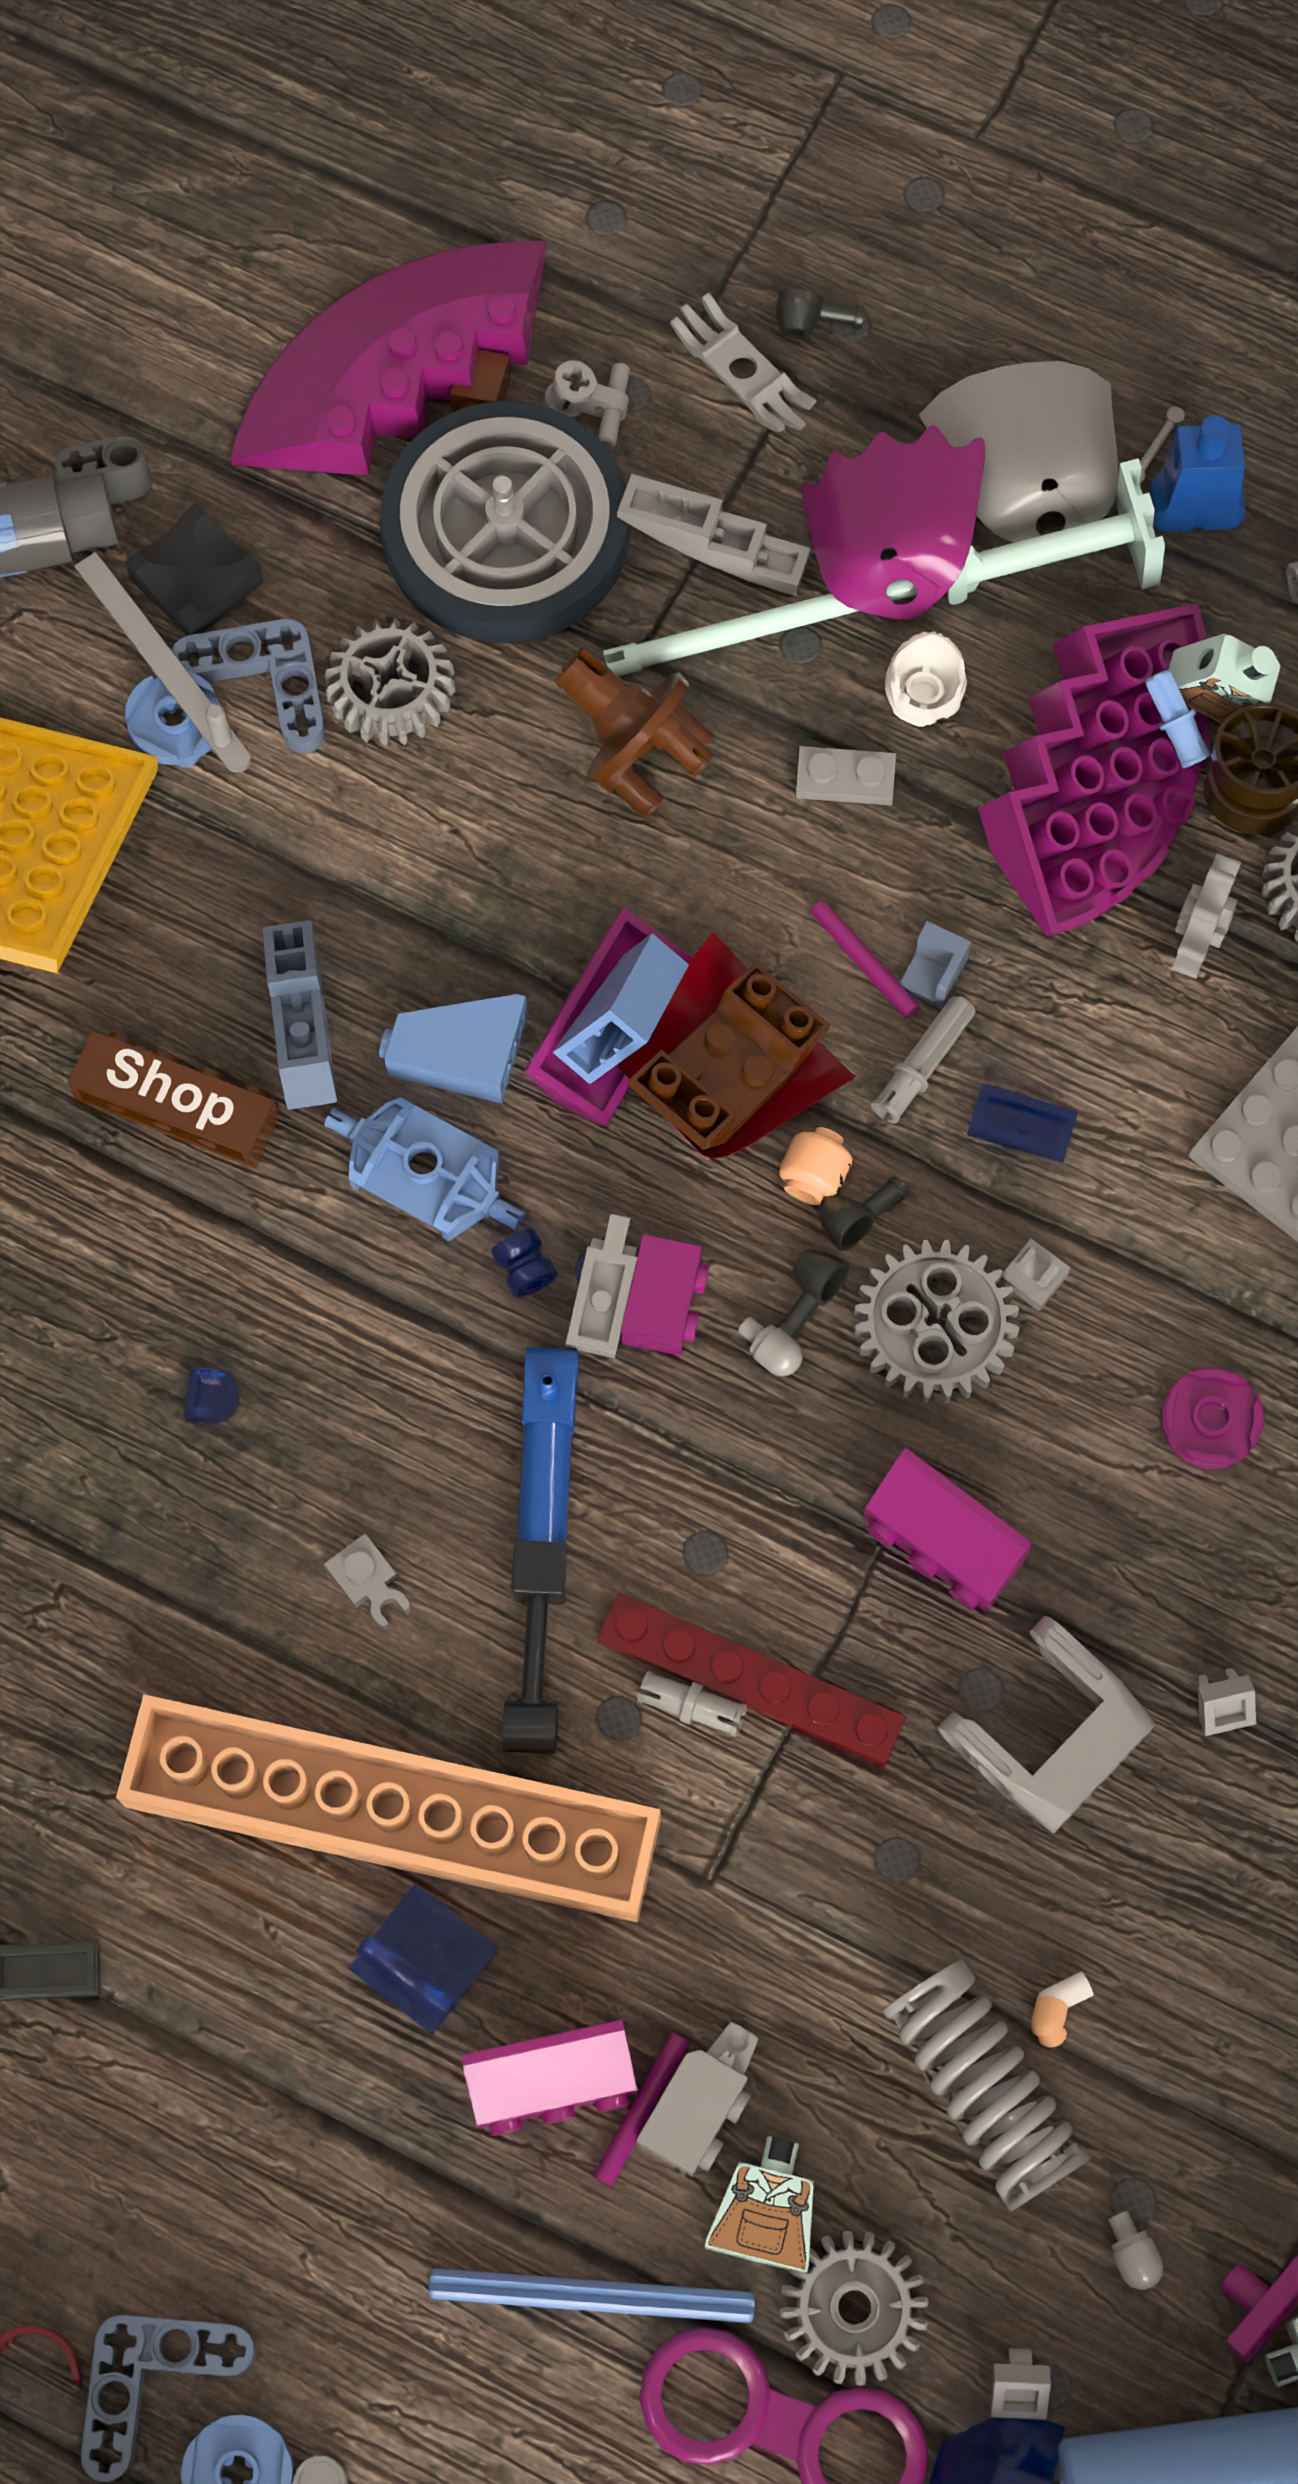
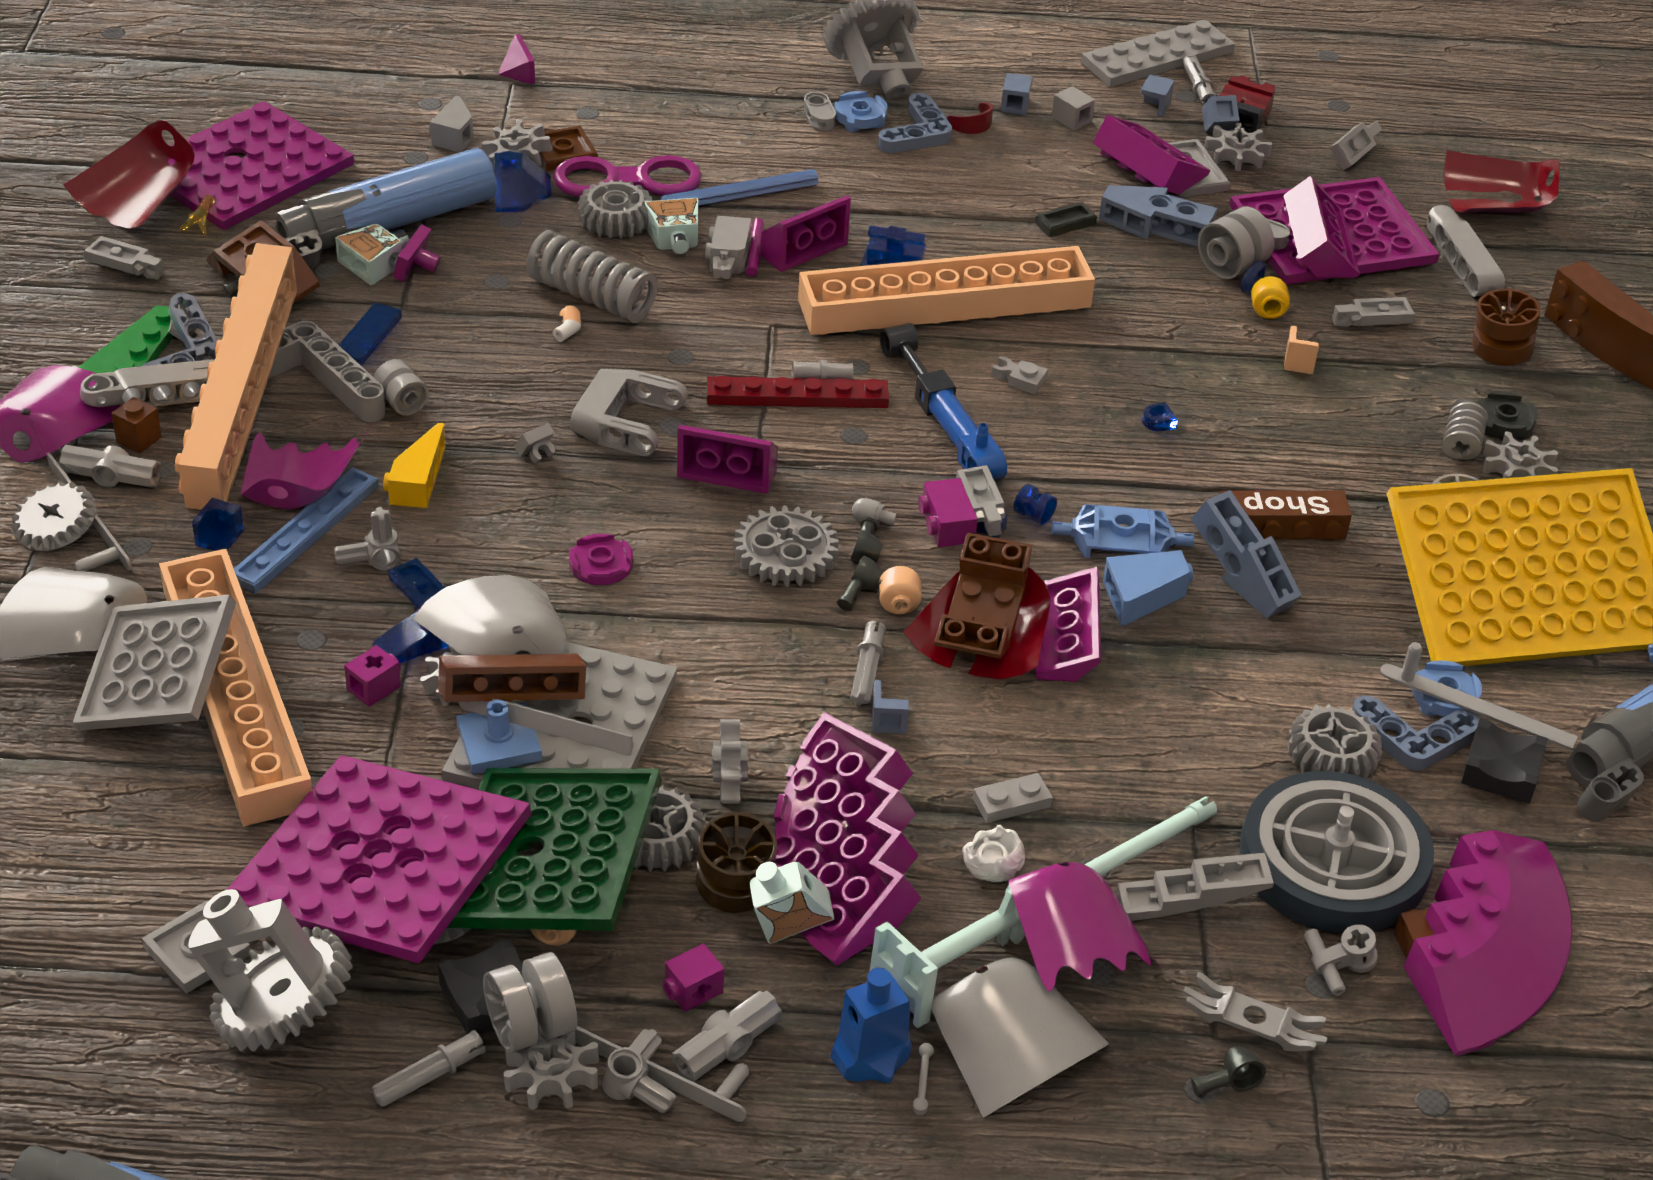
camera: 150 degrees right, 30 degrees down
(622, 1009) = (1060, 602): medium blue slope -> none
(631, 724) = (1162, 739): reddish brown piece -> none
(864, 959) = (937, 706): magenta bar -> none
(1020, 2387) = (524, 203): light grey tile -> none
(1022, 1123) = (788, 649): clear blue plate -> none
(1035, 1274) = (740, 589): light grey tile -> none
(1135, 2254) = (488, 258): light grey cylinder -> none
(1177, 719) = (824, 871): light blue axle -> none

